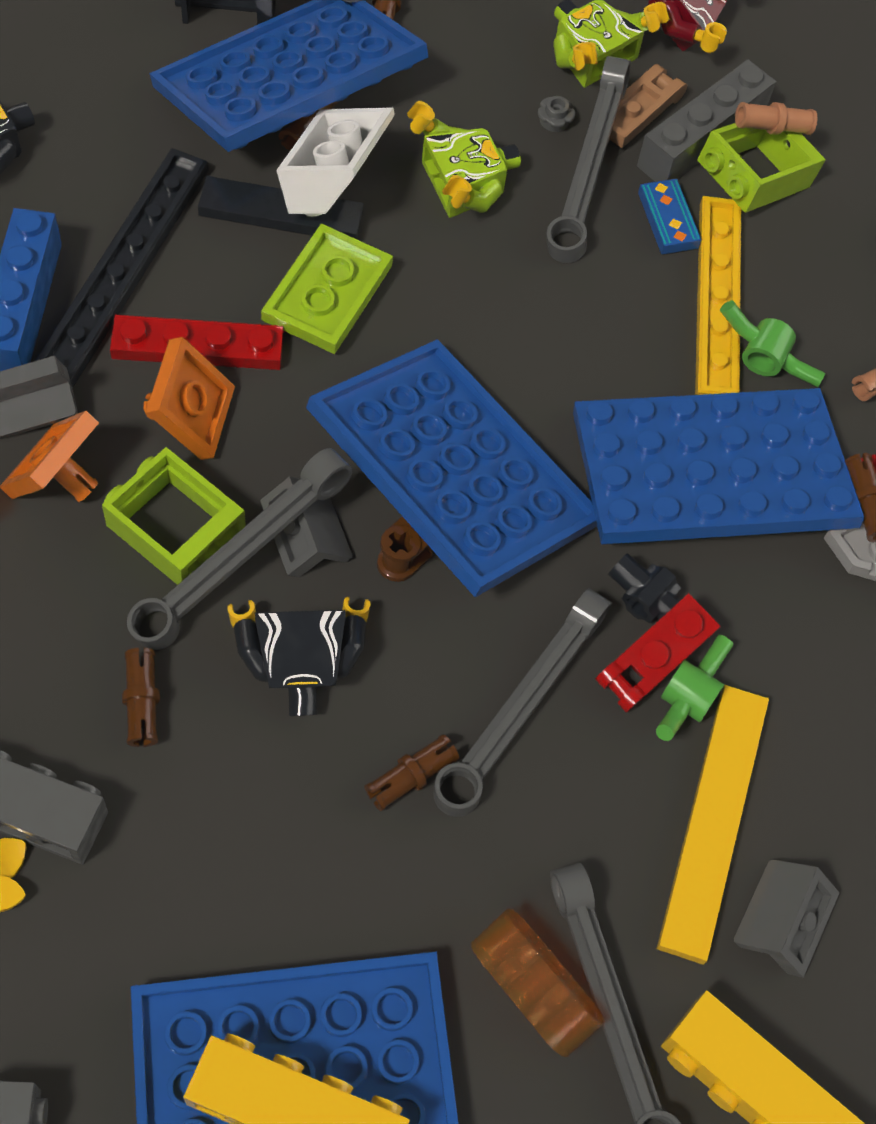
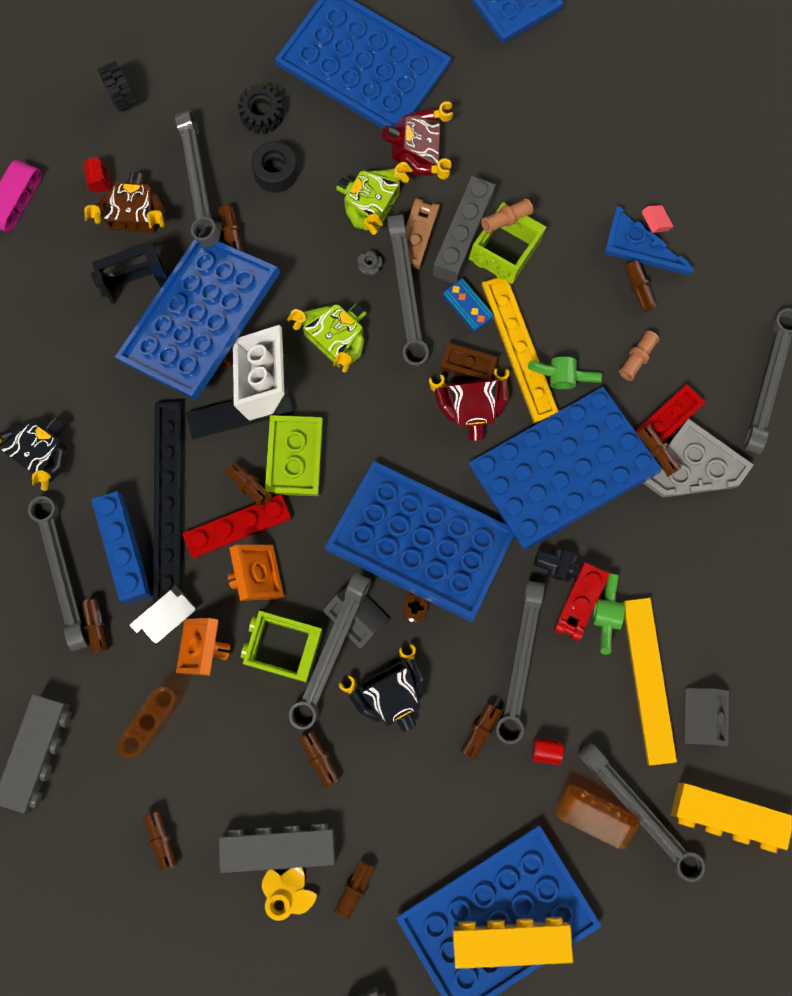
camera: 15 degrees left, 15 degrees up
(89, 915) = (354, 890): none -> reddish brown axle
(243, 292) = (248, 484): none -> reddish brown pin
(502, 846) = (547, 751): none -> red brick
(619, 324) = (472, 402): none -> dark red torso
(636, 281) = (468, 362): none -> reddish brown plate

